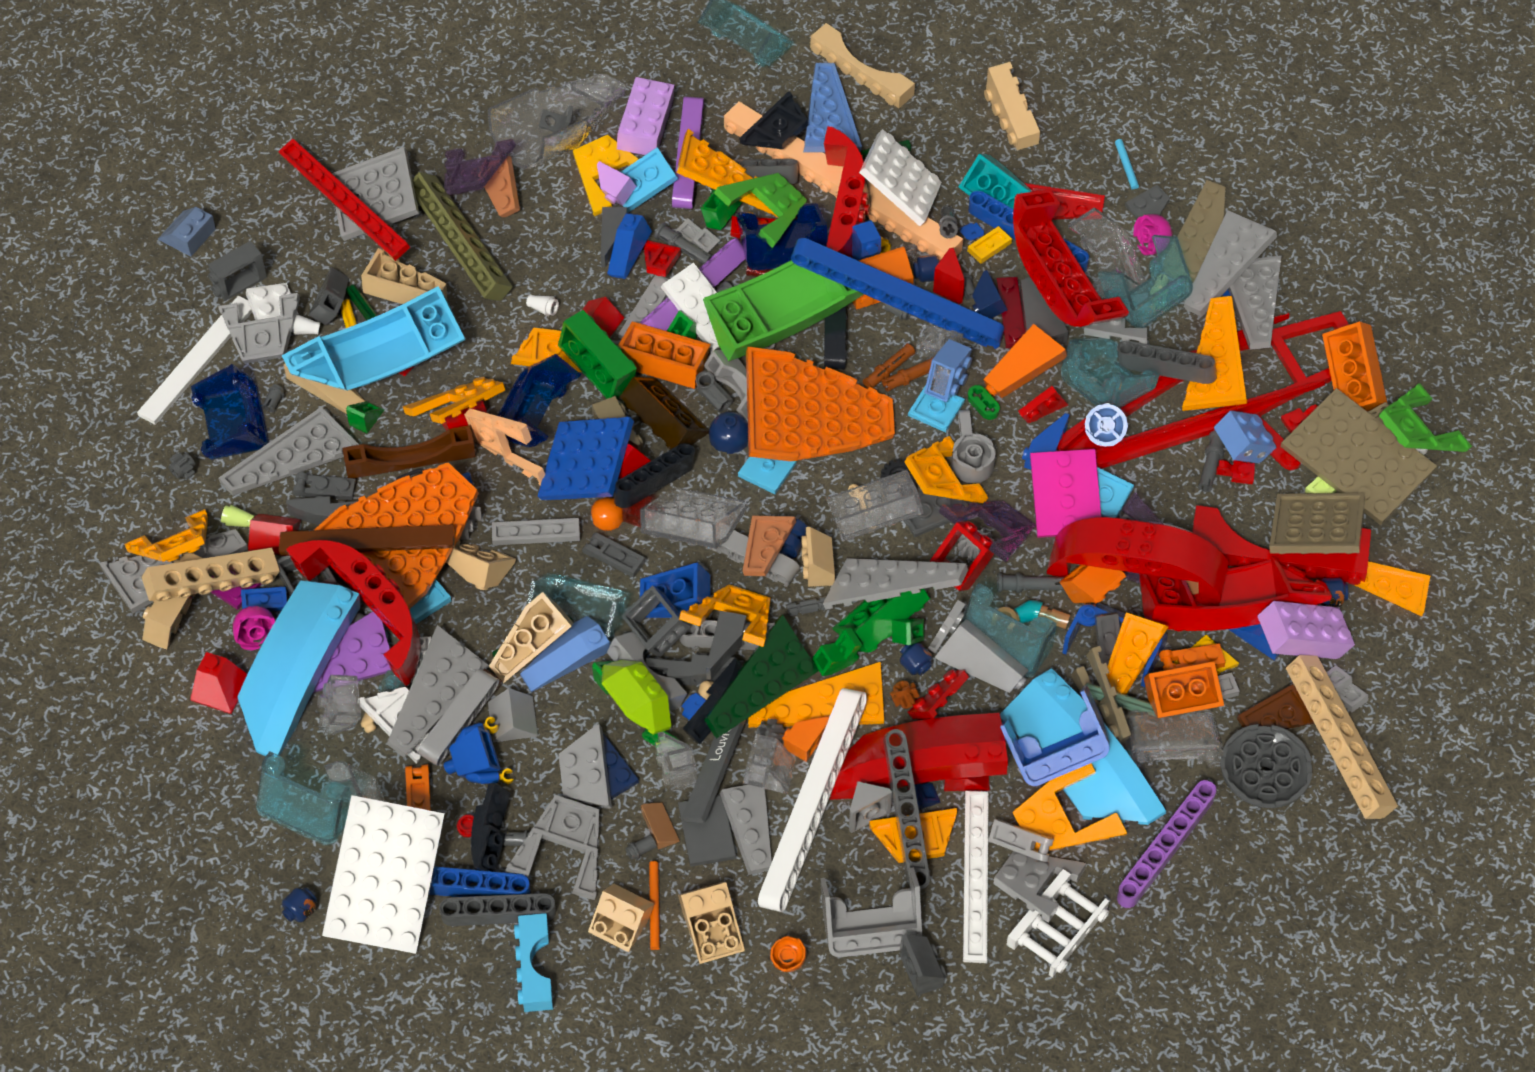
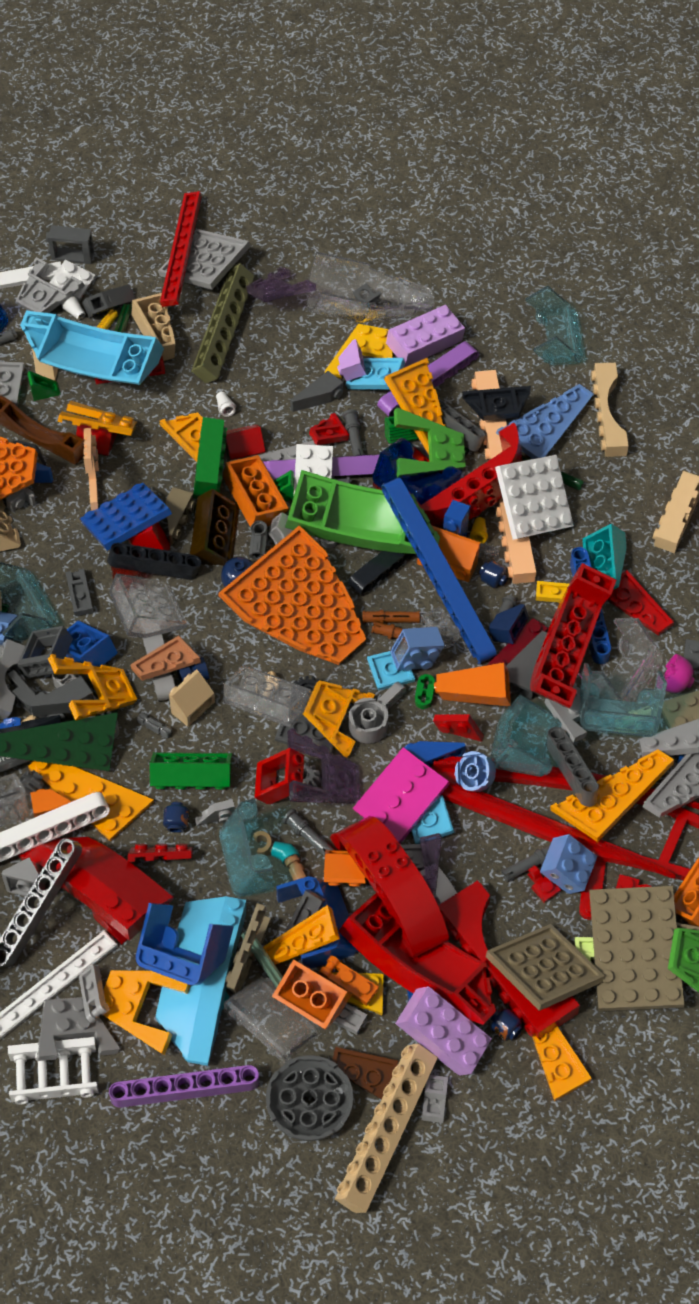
camera: 45 degrees right, 0 degrees up
(189, 230) = (79, 204): sand blue slope -> none
(503, 189) = (285, 313): nougat wing -> none
(534, 392) = (141, 458): clear blue windscreen -> none
(535, 531) = (52, 538): light grey plate -> none
(606, 514) = (101, 565): orange hair -> none
(628, 244) = (319, 405): blue slope -> none
(701, 238) = (370, 436): light grey slope -> none
(766, 472) = (229, 622): medium azure plate -> none
(838, 655) = (130, 771): green brick -> none
(888, 578) = (211, 745): light grey wing -> none
(904, 694) = (140, 832): dark orange gear -> none
(908, 631) = (191, 796): green slope -> none
(926, 795) = (76, 910): dark blue slope -> none
(935, 828) = (50, 935): light orange wing -> none
(948, 222) = (534, 552): dark grey pin -> none
(949, 278) = (495, 588): red slope -> none
(967, 231) = (550, 571): blue piece -> none
(982, 658) = (213, 854): light grey slope -> none

